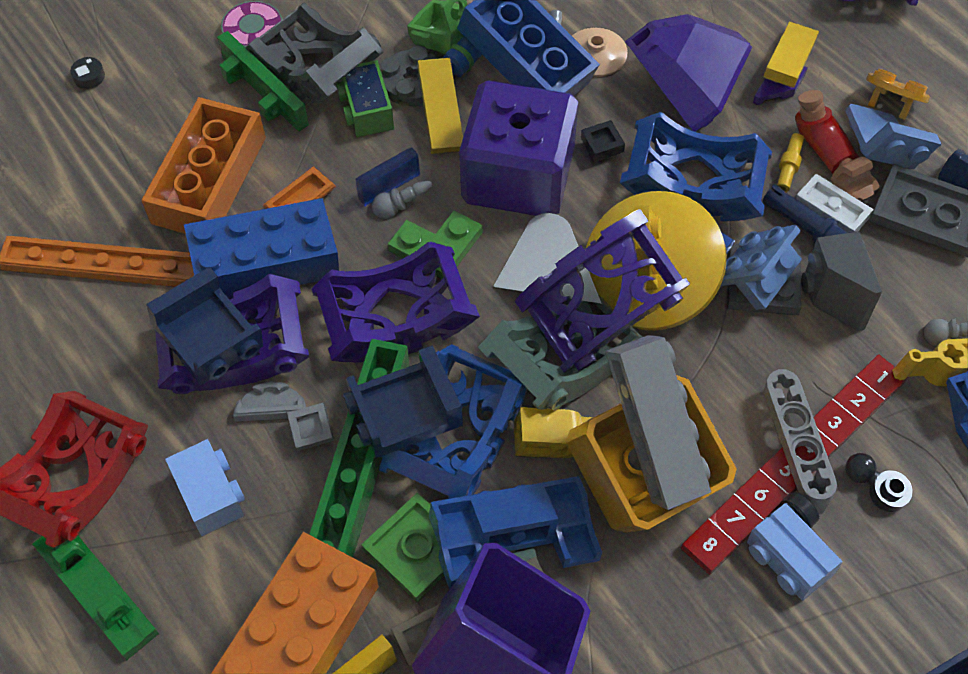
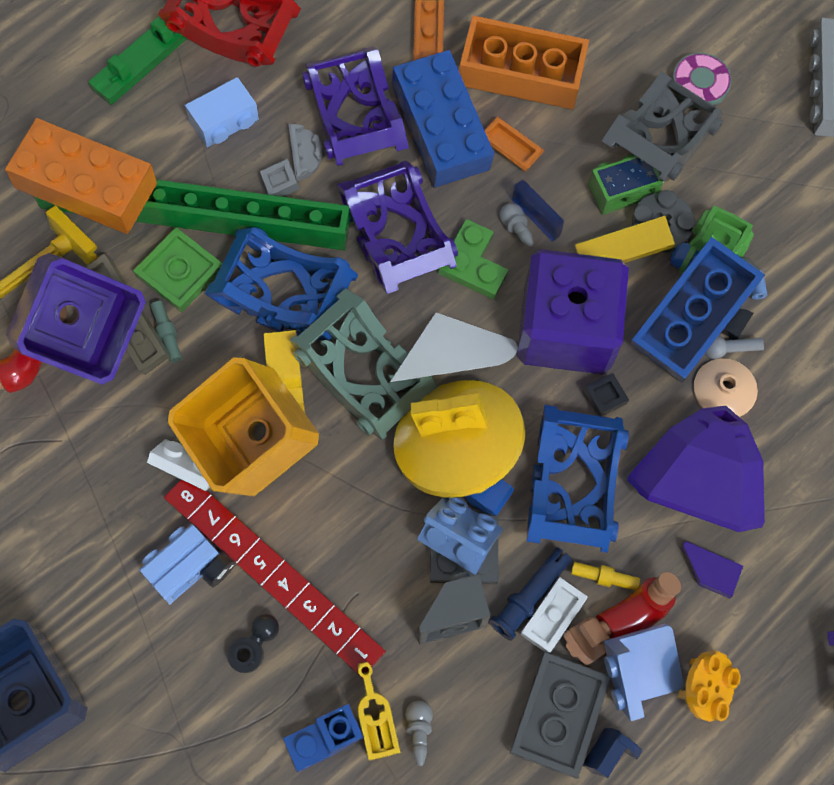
camera: 80 degrees right, 10 degrees up
(204, 327) = (346, 80): dark blue panel -> none
(276, 98) = (646, 73): green hinge -> none
(404, 405) = (279, 231): dark blue panel -> none
(516, 520) = (193, 324): blue bracket -> none
(617, 240) = (428, 379): dark purple fence -> none
(659, 421) = (246, 412): light grey brick -> none
(672, 545) = (175, 460): none -> white plate
(791, 54) = (743, 576): yellow tile -> none
(806, 435) = (285, 563): light grey beam -> none

